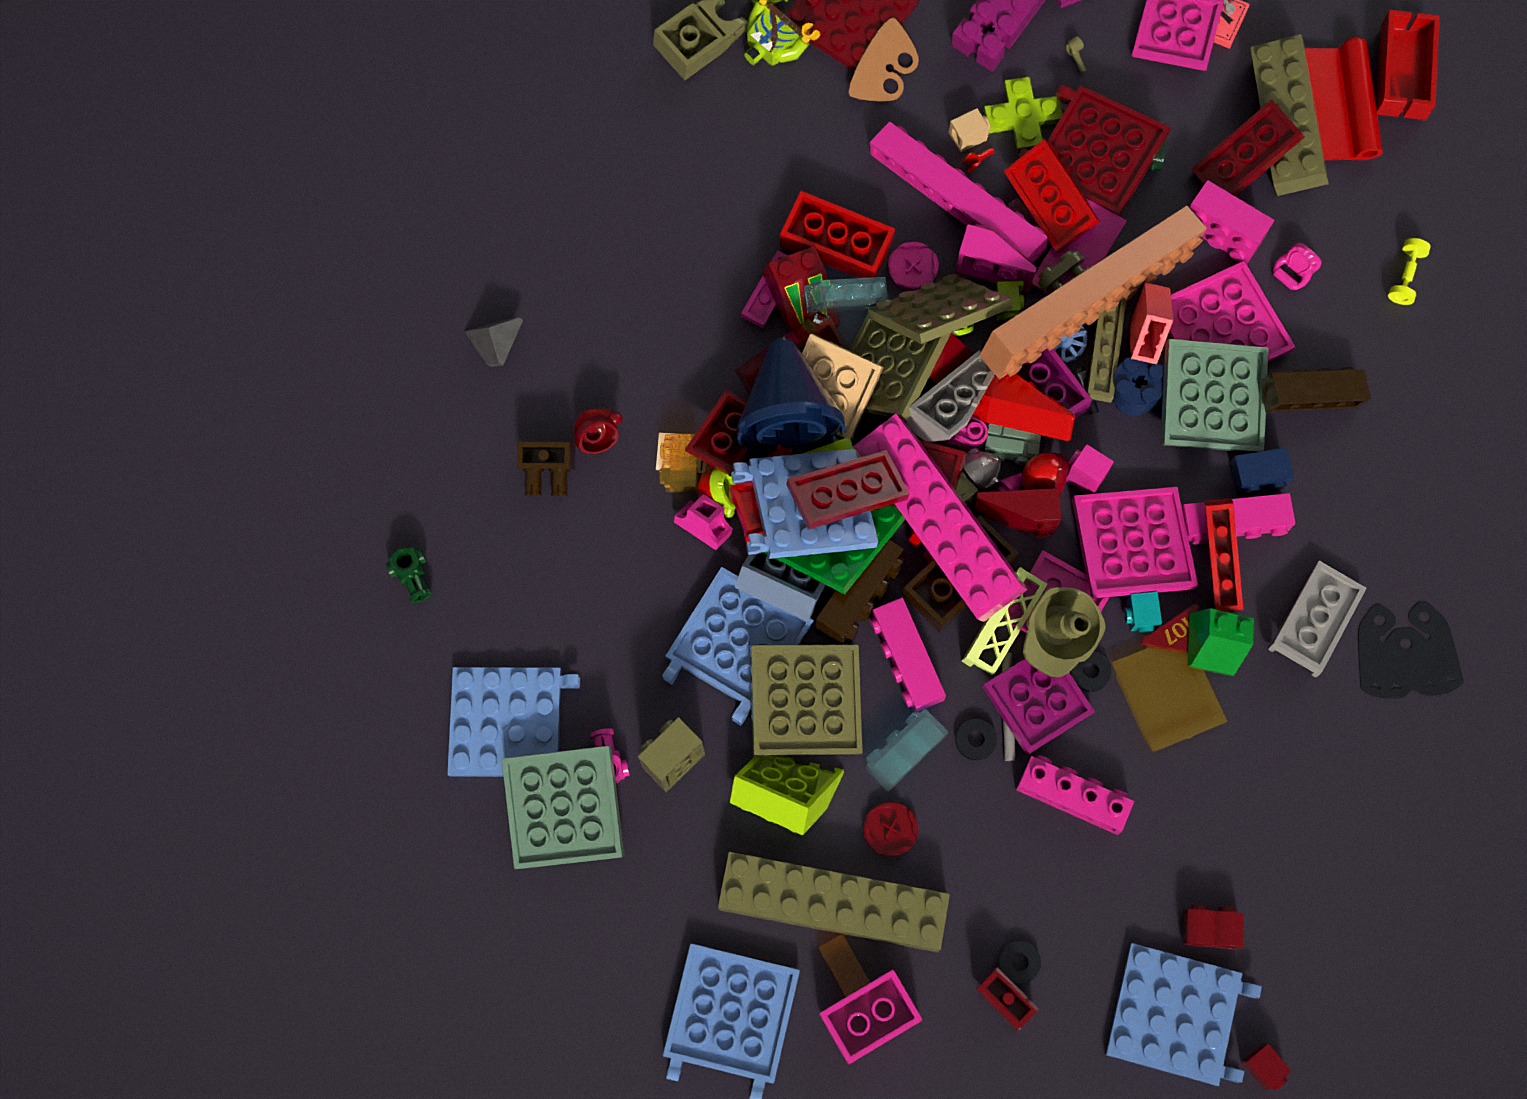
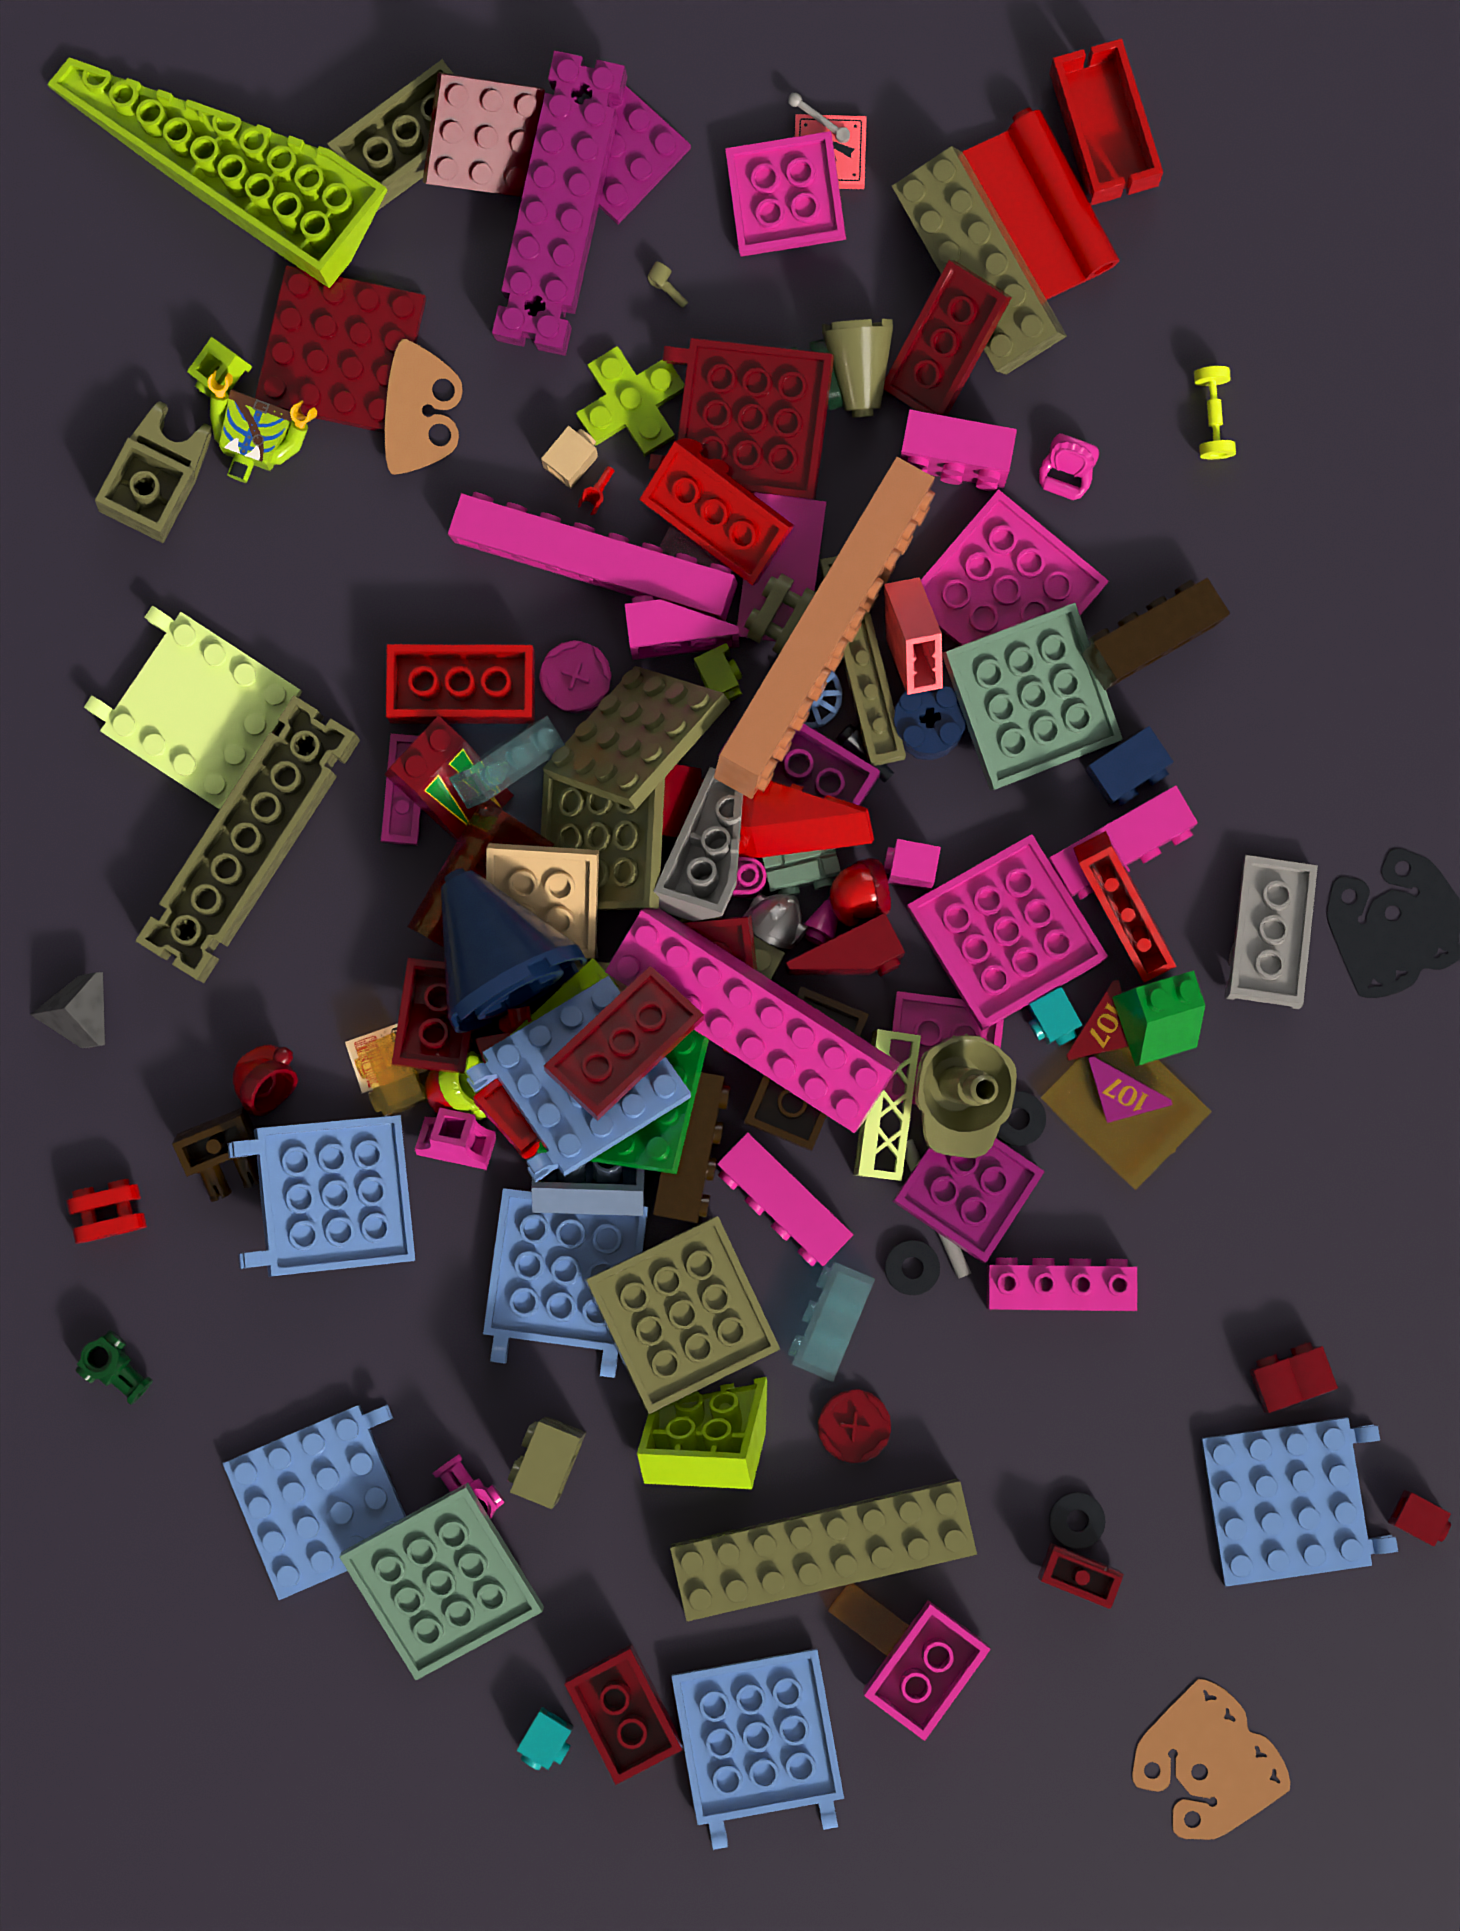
camera: 20 degrees left, 10 degrees up
(445, 461) = (119, 1194): none -> red brick
(583, 950) = (545, 1740): none -> teal brick
(605, 521) = (331, 1195): none -> medium blue plate
(646, 954) = (624, 1714): none -> dark red brick
(655, 276) = (248, 839): none -> olive brick
(660, 188) = (197, 708): none -> yellowish green plate
(1171, 683) = (1123, 1094): none -> magenta tile
(1185, 144) = (859, 361): none -> olive cone

